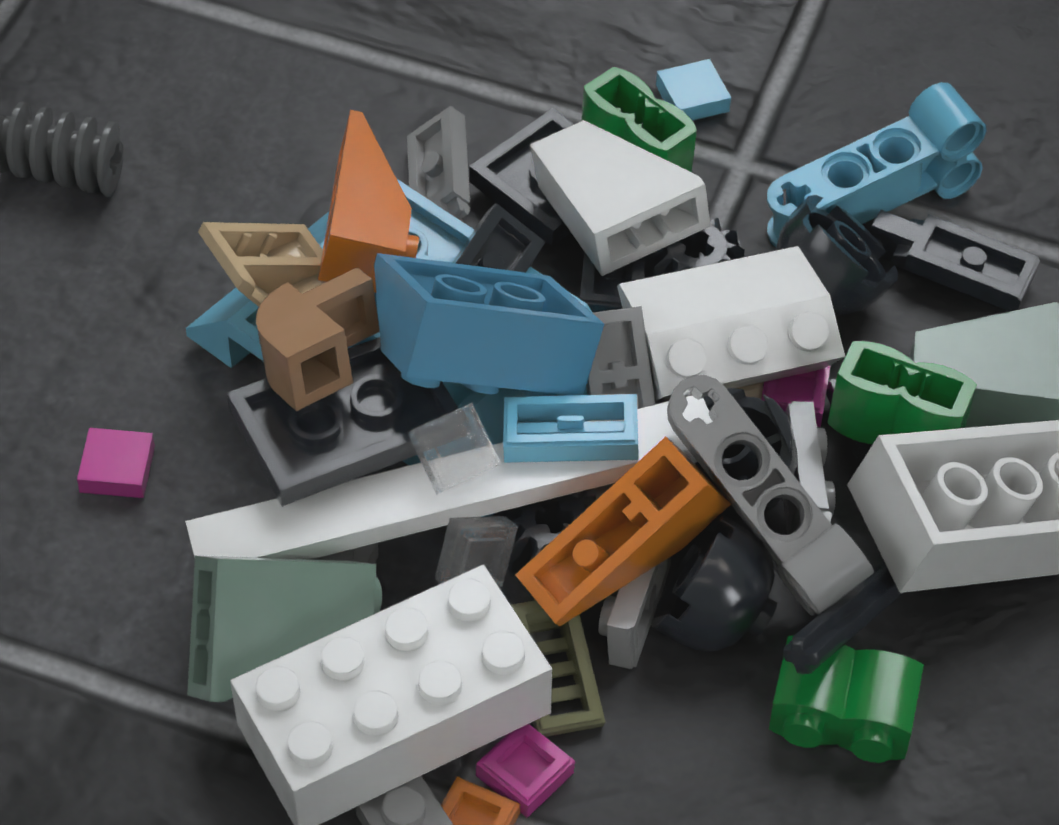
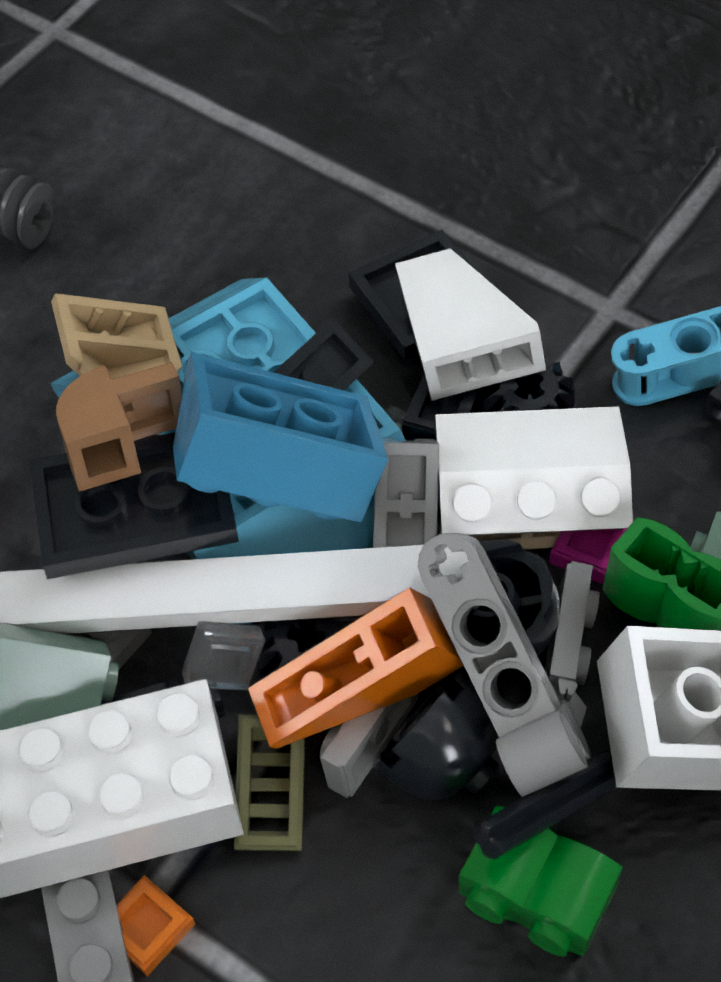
camera: 20 degrees right, 5 degrees up
(366, 207) = (212, 305): orange slope -> none
(440, 162) = (322, 271): light grey hinge -> none
(454, 448) = (216, 555): clear tile -> none
(525, 768) = (211, 881): dark pink tile -> none
(570, 436) = (332, 562): medium azure tile -> none
(628, 110) = (511, 260): green brick -> none
(694, 89) = (582, 233): medium azure tile -> none
(840, 254) = (662, 420): black cylinder -> none

